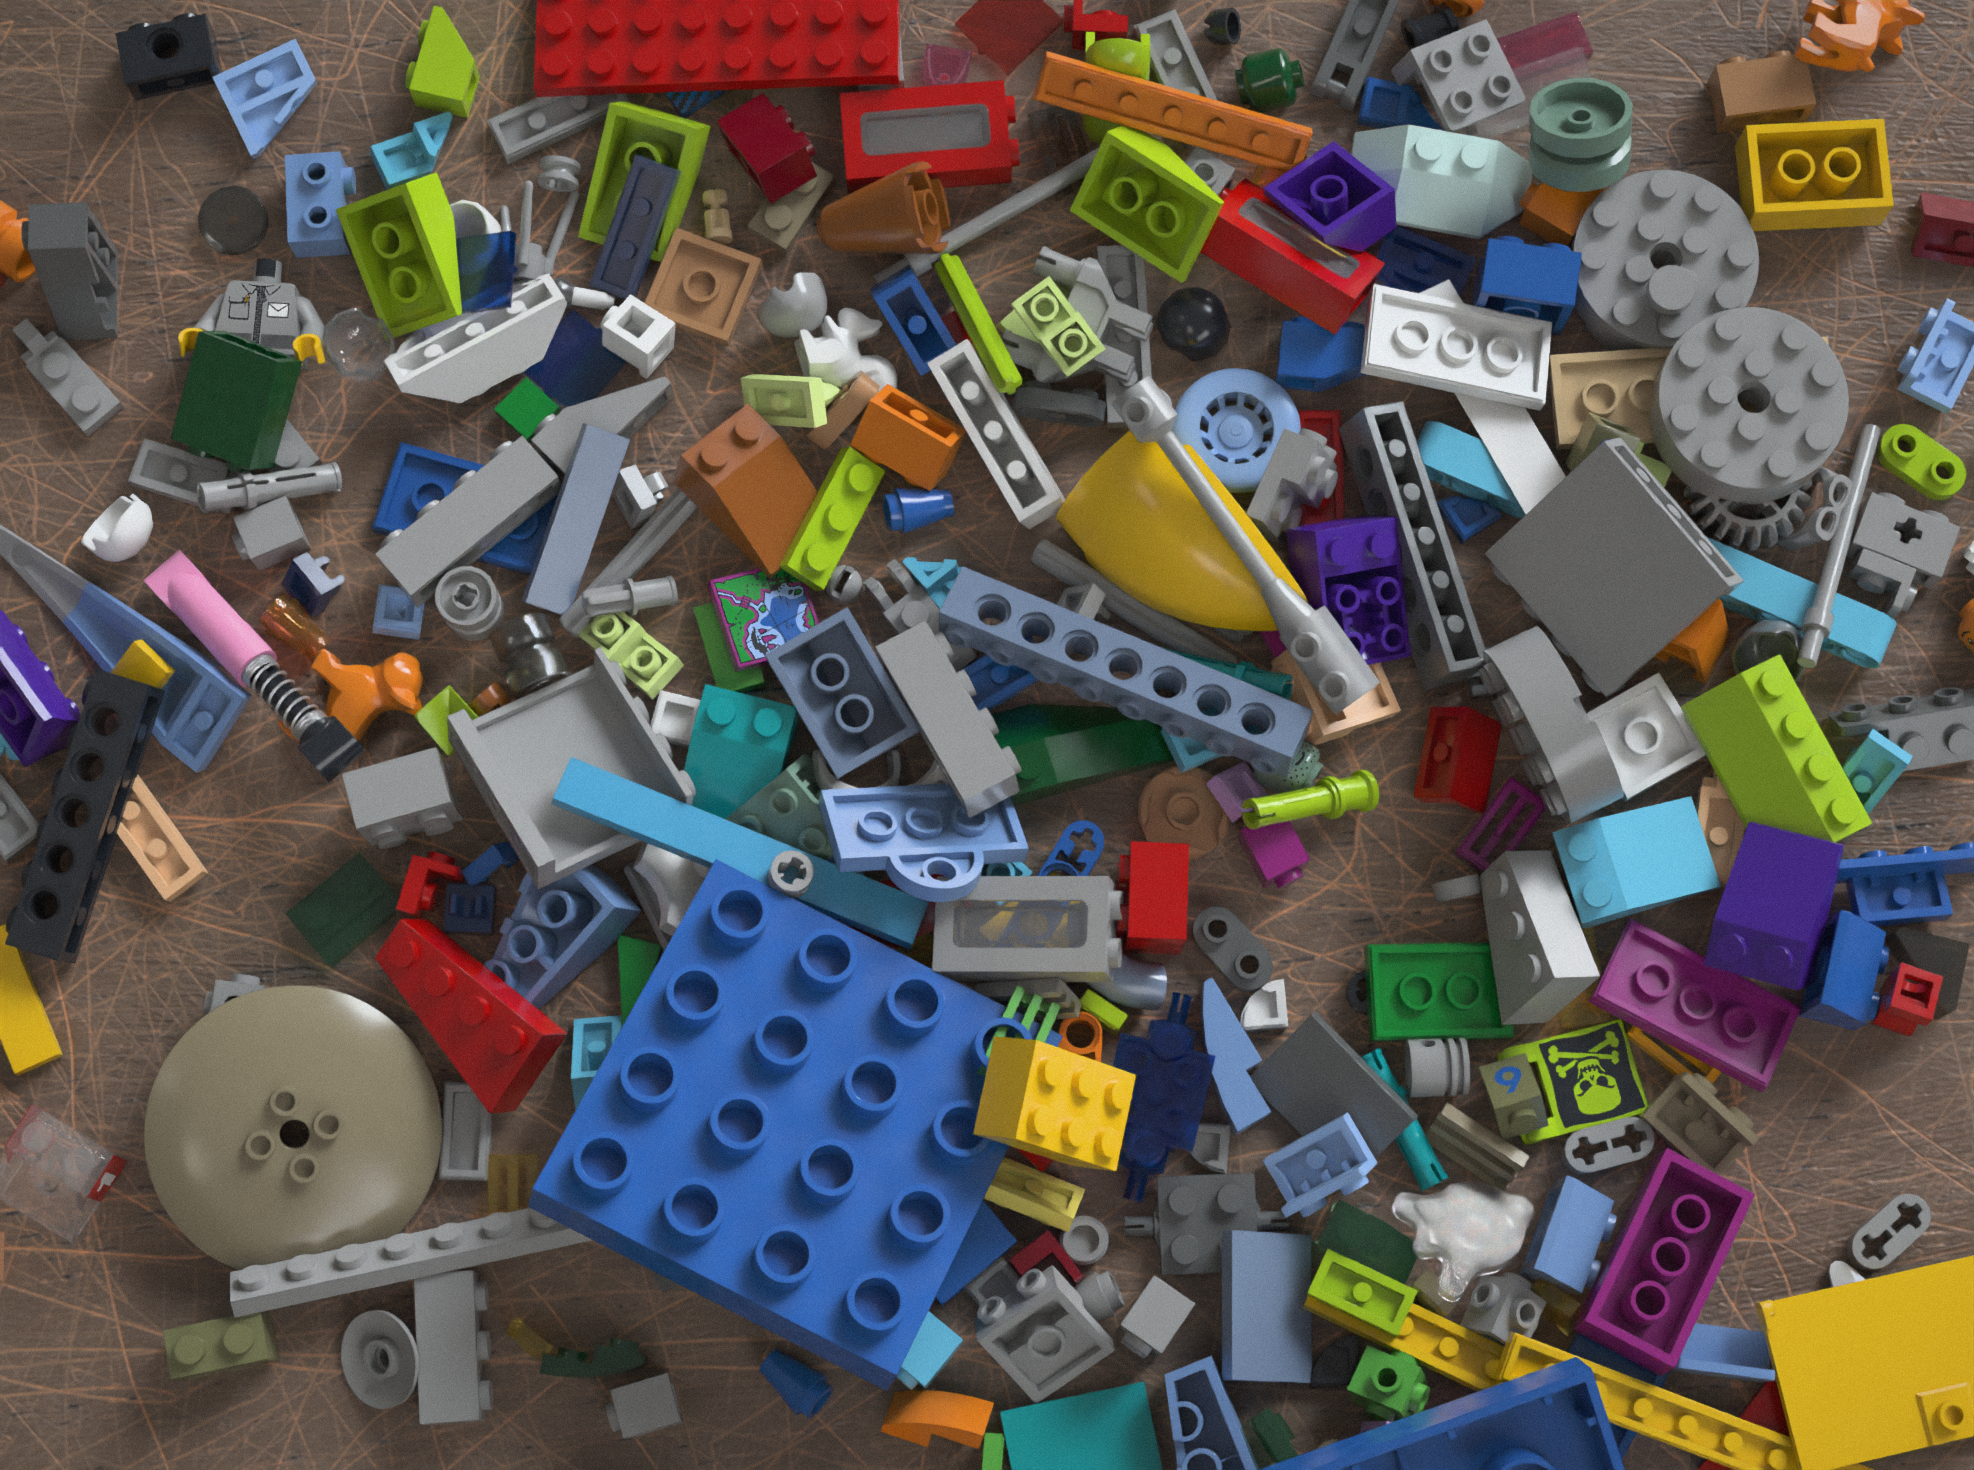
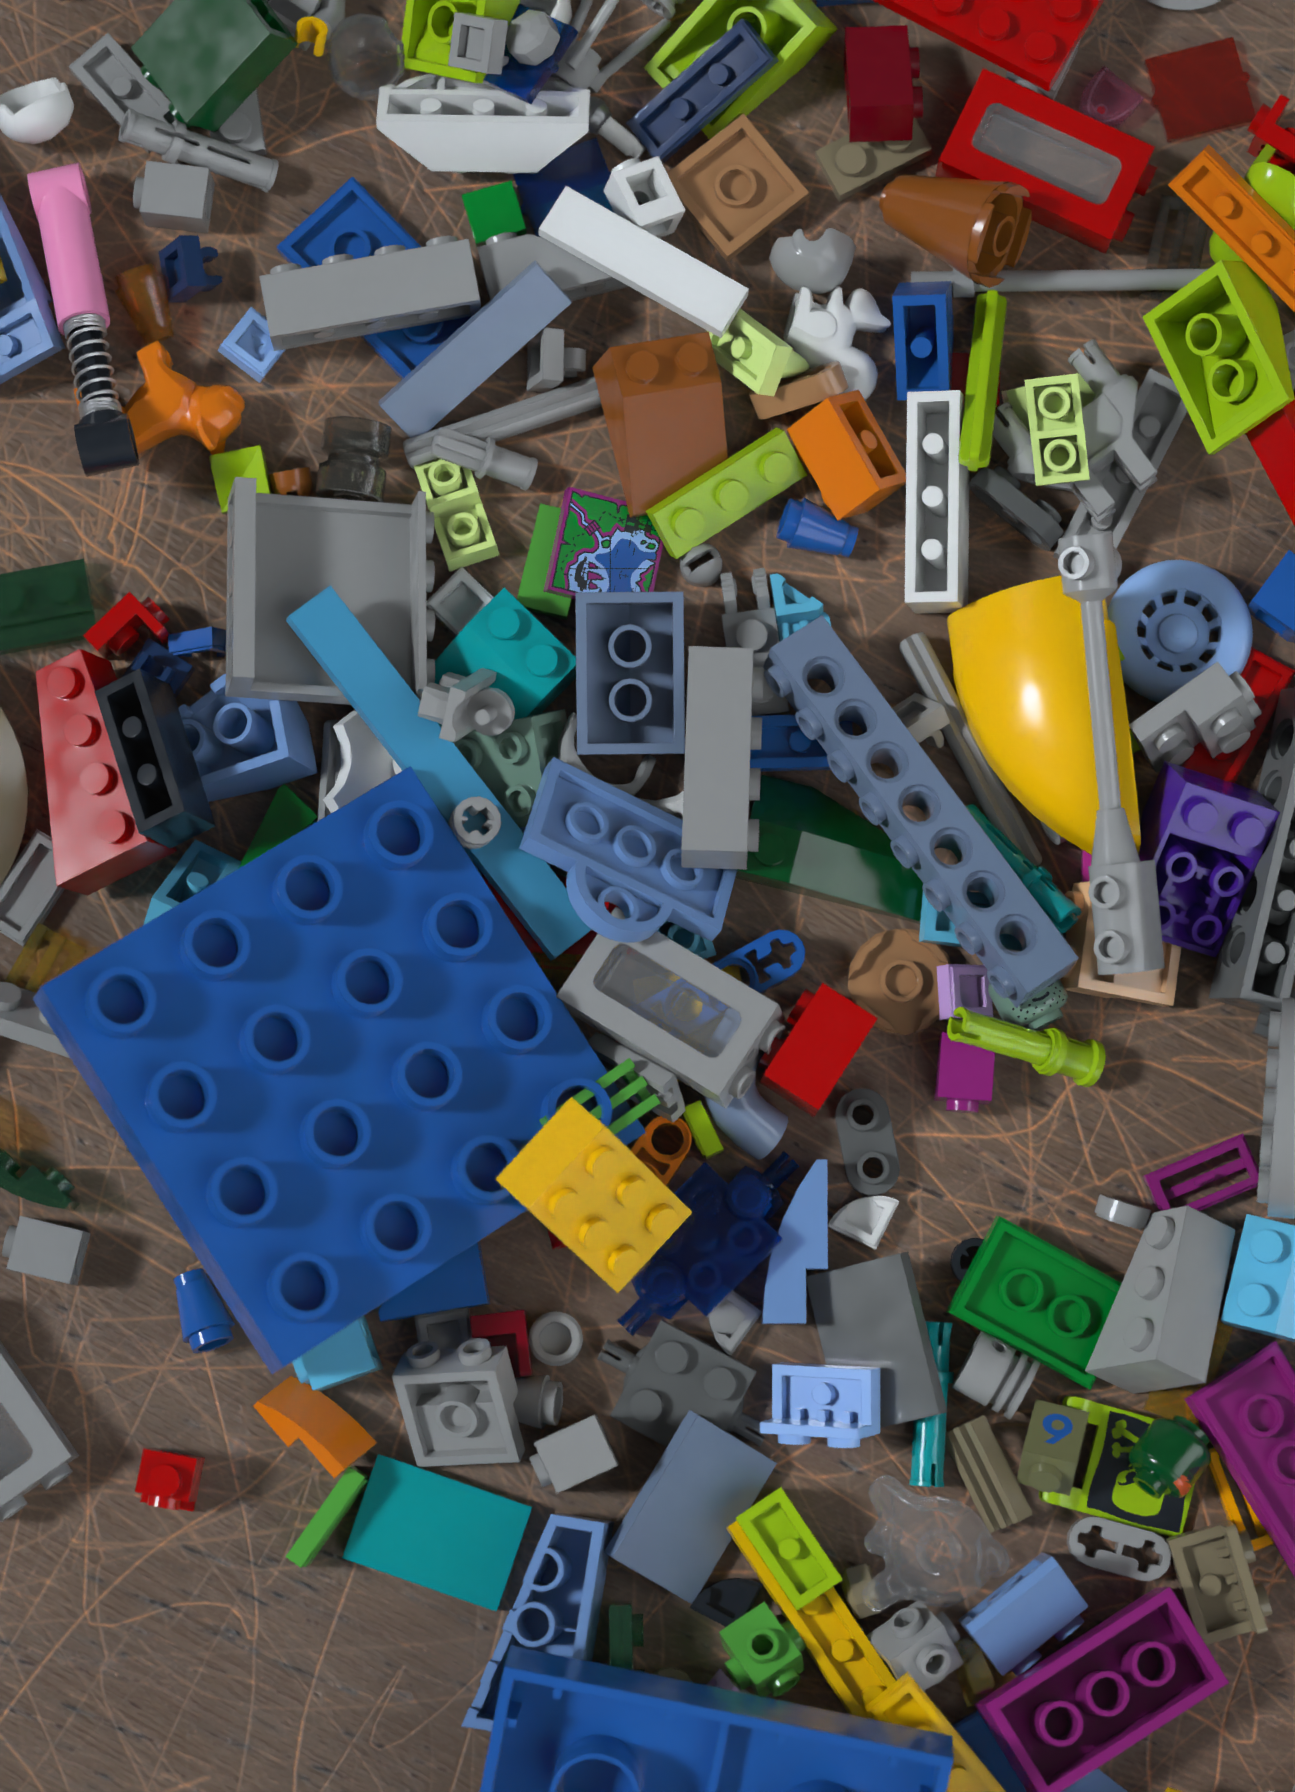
camera: 35 degrees right, 5 degrees up
(403, 798) = (151, 532): light grey brick -> none
(444, 283) = (478, 43): none -> light grey tile
(469, 603) = (326, 375): light grey wheel -> none
(483, 256) = (532, 37): none -> light grey tile
(510, 969) = (154, 758): none -> black brick
(667, 378) = (643, 262): none -> white tile
(717, 218) = (790, 127): tan piece -> none
(731, 788) = (467, 705): none -> light grey hips
(1035, 1194) = (533, 1266): light yellow plate -> none
(1194, 323) = (1201, 501): black hair -> none
(1367, 1241) = (825, 1505): clear green slope -> none
(1457, 758) = (1202, 1085): red panel -> none
(1605, 1051) = (1170, 1457): none -> dark green head

